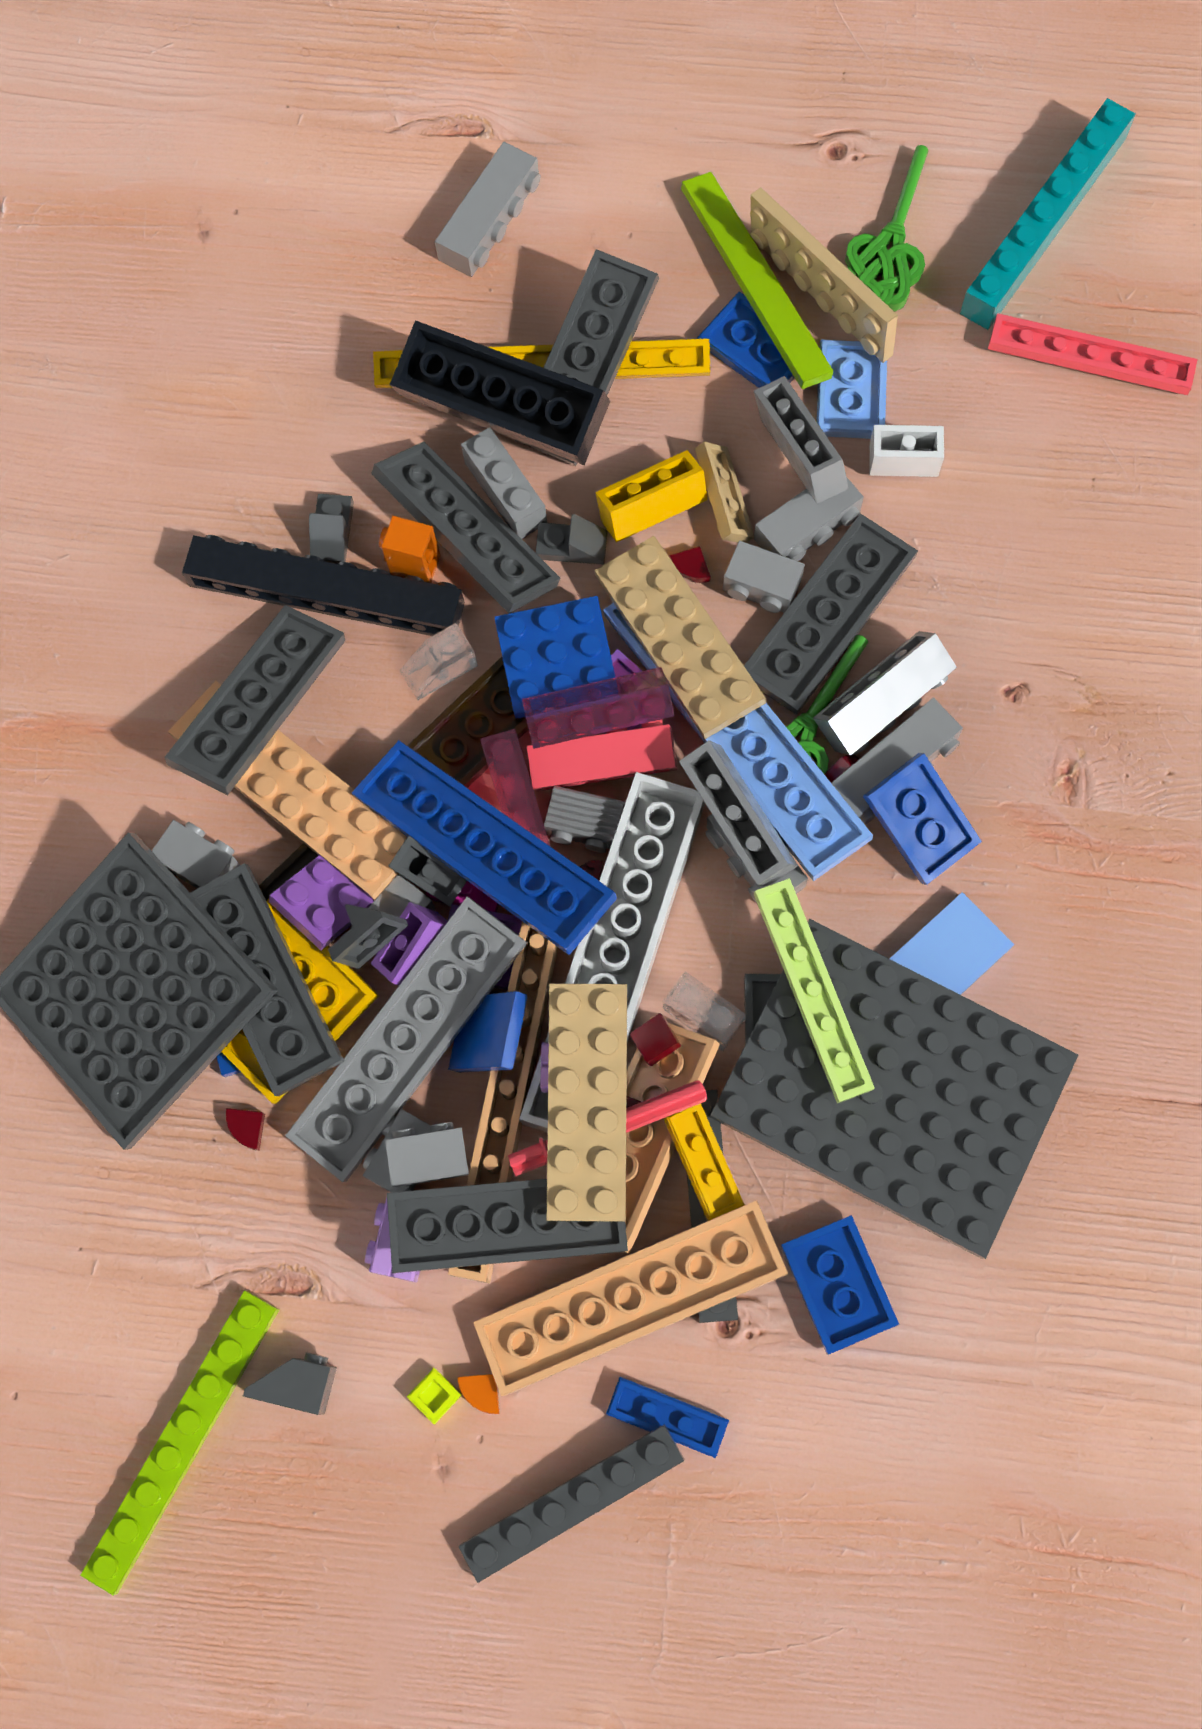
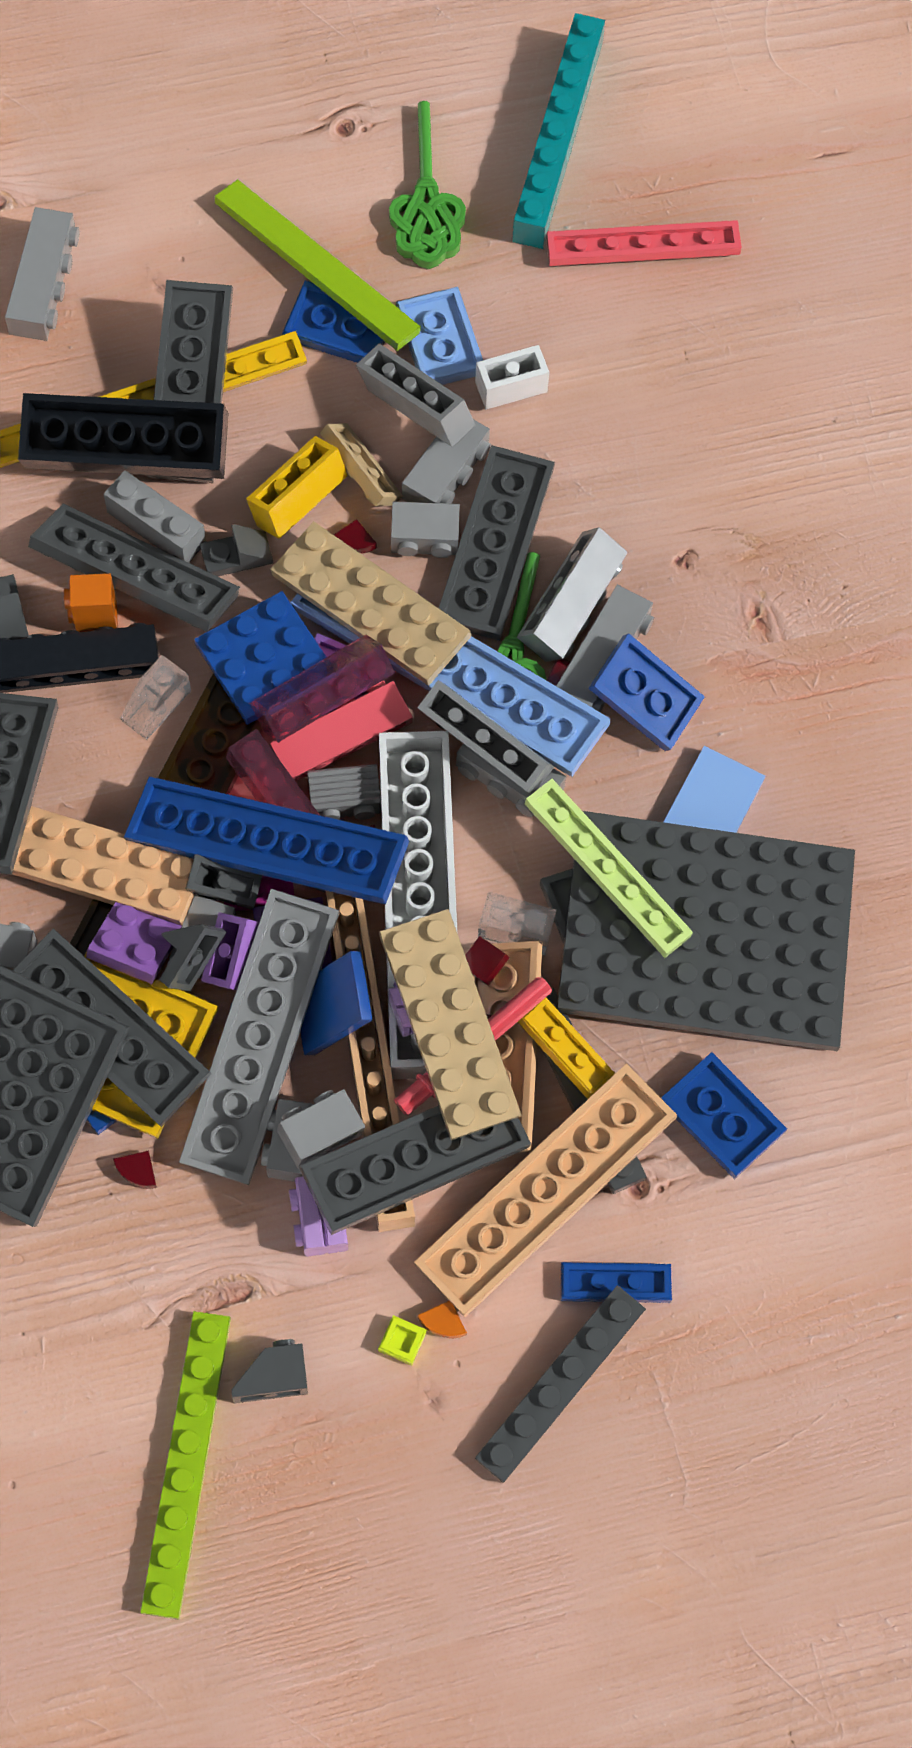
camera: 30 degrees left, 5 degrees down
(823, 276) = (379, 244): tan plate -> none

